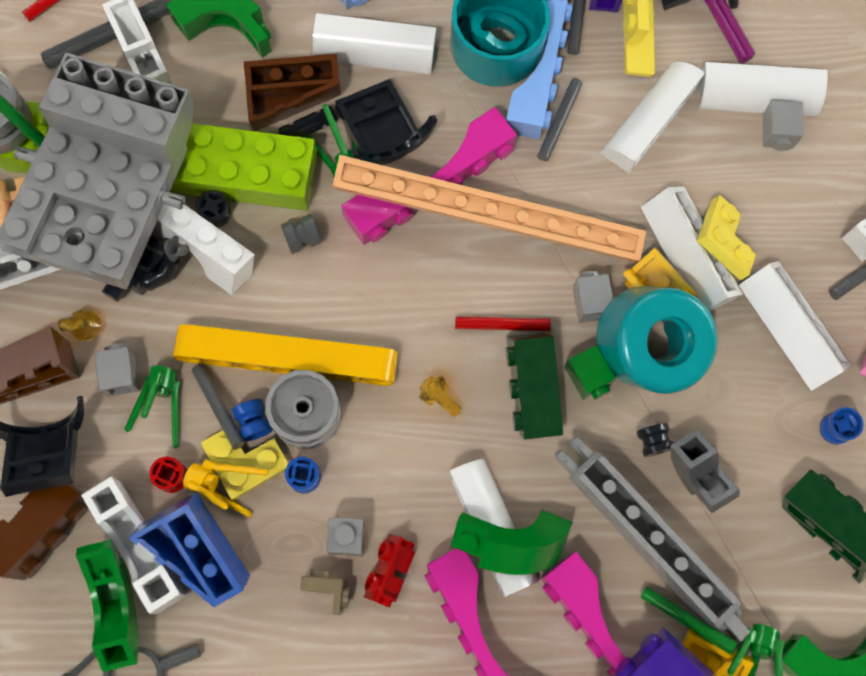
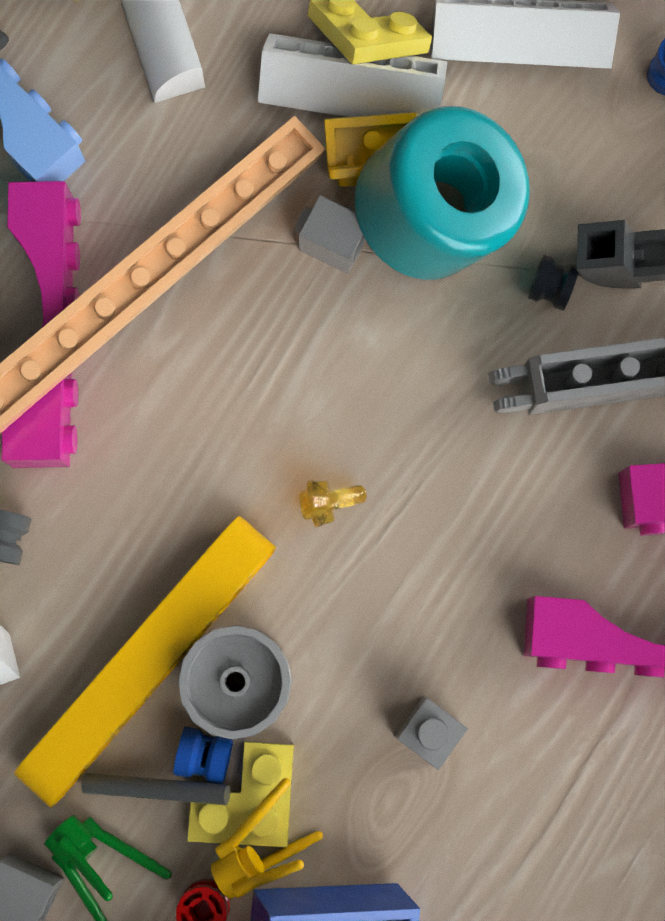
camera: 55 degrees left, 5 degrees up
(306, 480) = (317, 727): blue wheel -> none
(321, 582) = (467, 798): dark tan bracket -> none
(381, 583) = (513, 725): red hinge -> none
(482, 500) = (533, 544): white brick -> none
(503, 323) = (289, 364): red bar -> none
(513, 550) = (584, 541): green arch -> none
(534, 385) = (394, 376): dark green wedge -> none
(559, 119) = (78, 119): dark grey bar -> none
(590, 373) = (424, 302): green brick -> none

